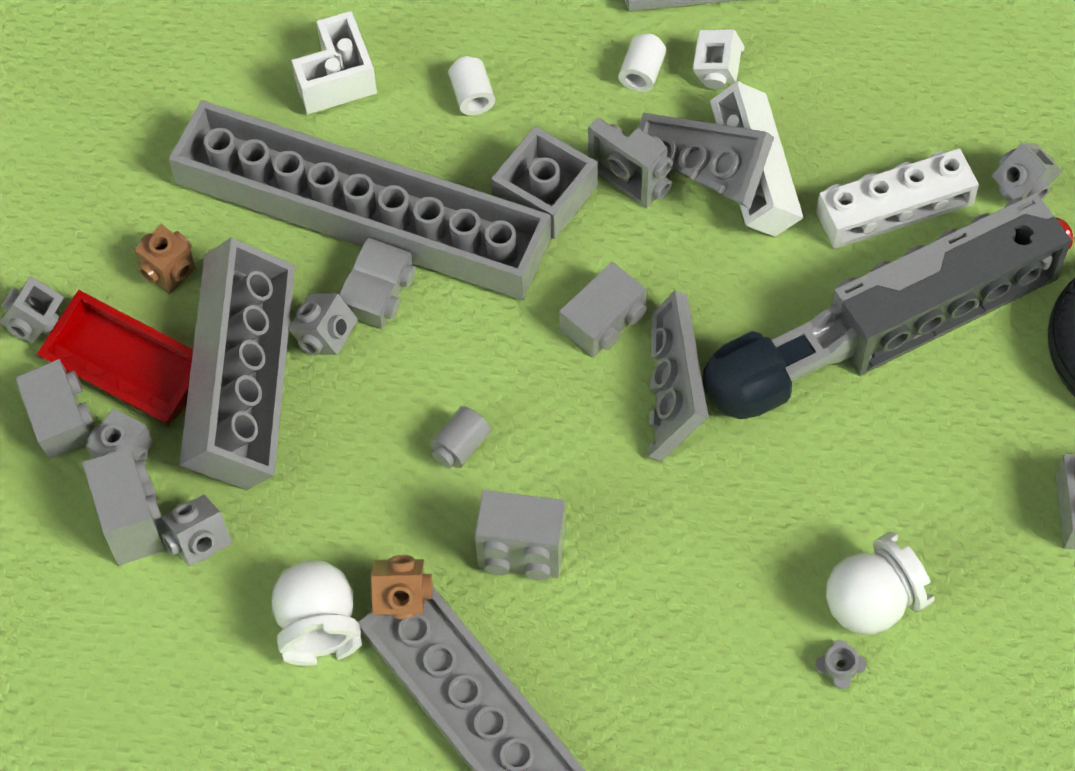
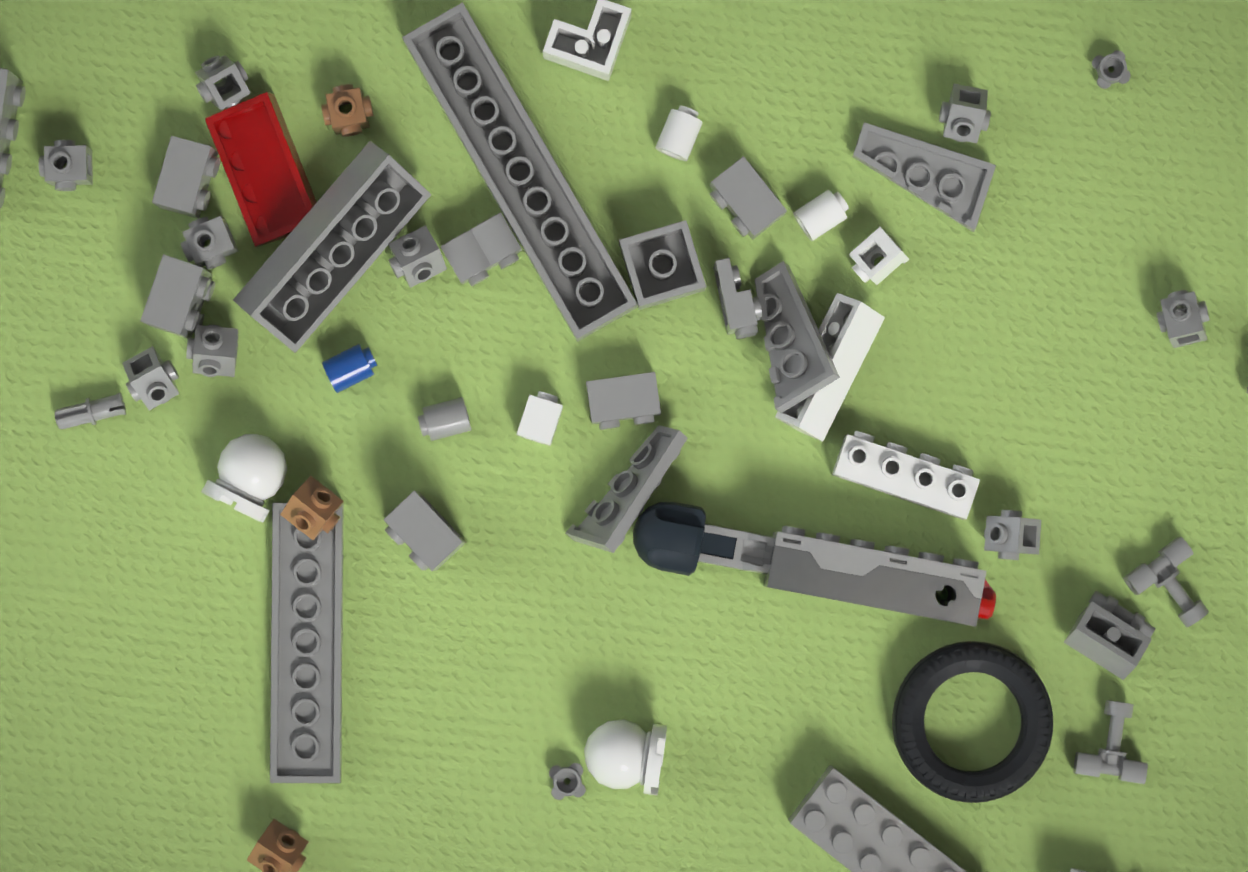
camera: 30 degrees right, 25 degrees up
(113, 676) = (90, 411): none -> light grey axle
(152, 597) = (151, 378): none -> light grey brick
(334, 459) = (349, 367): none -> blue brick
(545, 377) = (540, 418): none -> white brick
(570, 91) = (746, 198): none -> light grey piece

